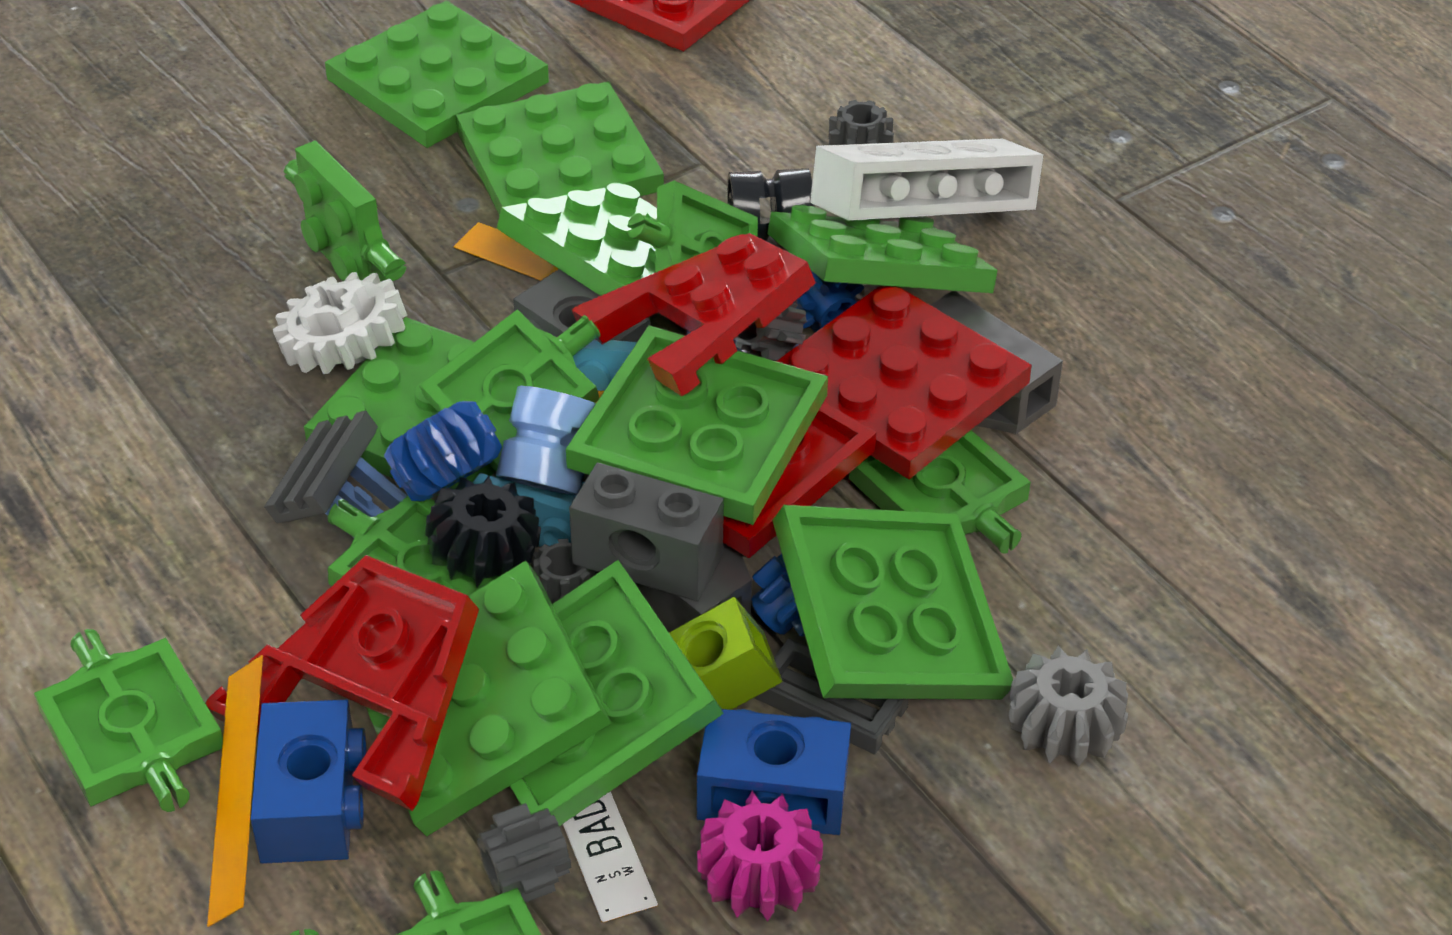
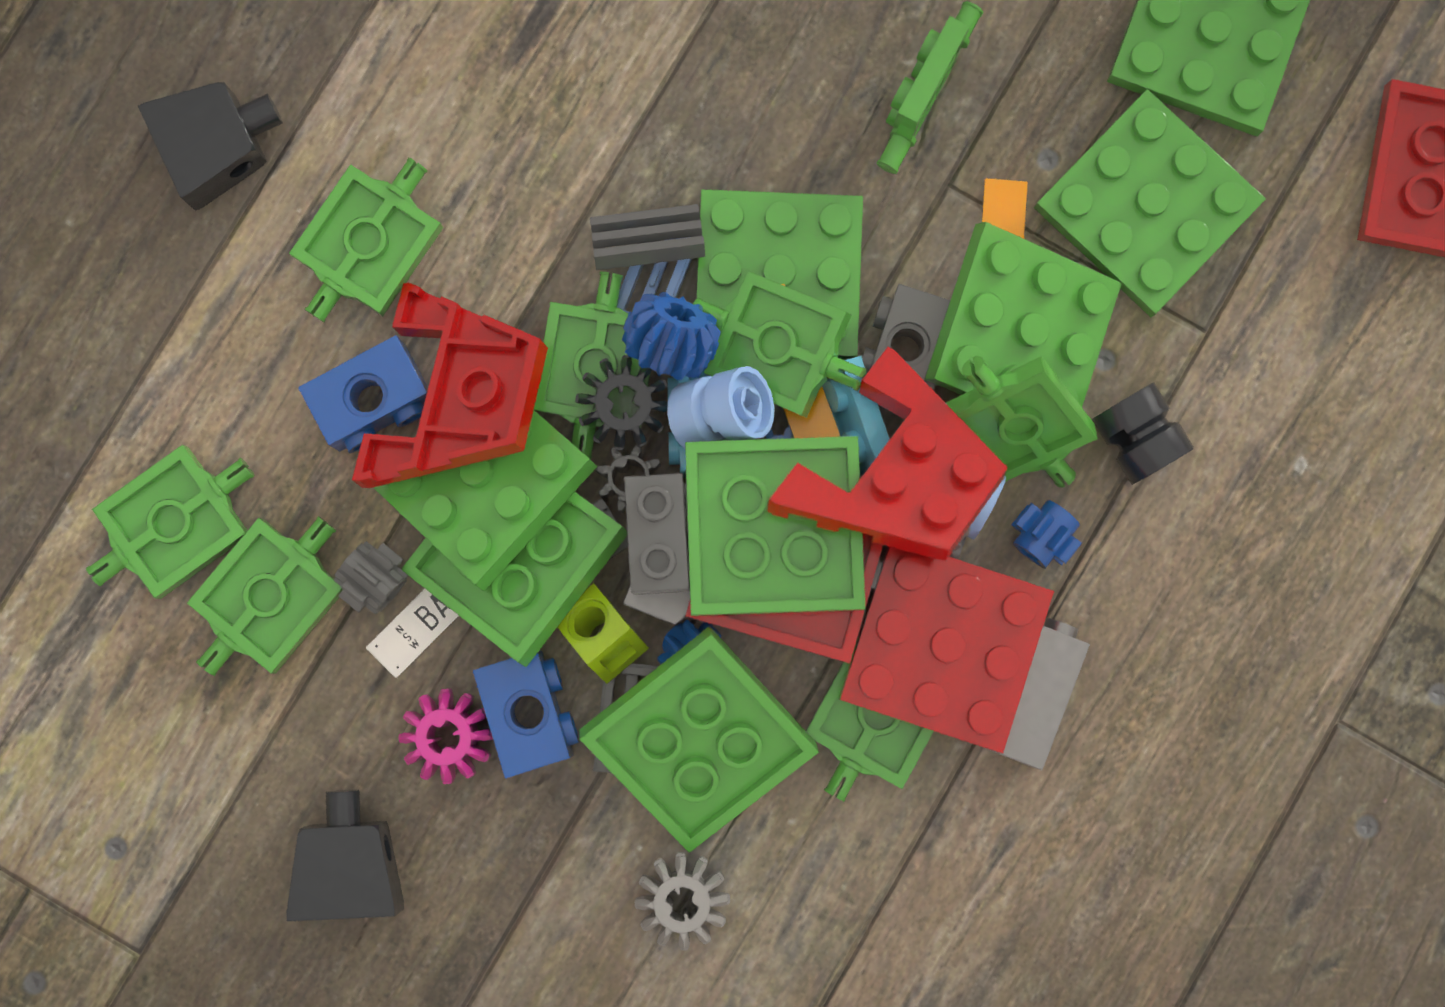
camera: 65 degrees right, 40 degrees up
(235, 793) = (337, 352): light orange sticker -> none
(340, 322) = (833, 168): white gear -> none
(860, 125) = (1310, 462): dark grey gear -> none
(881, 251) = (1101, 564): bright green plate -> none
(925, 178) = (1224, 564): white brick -> none

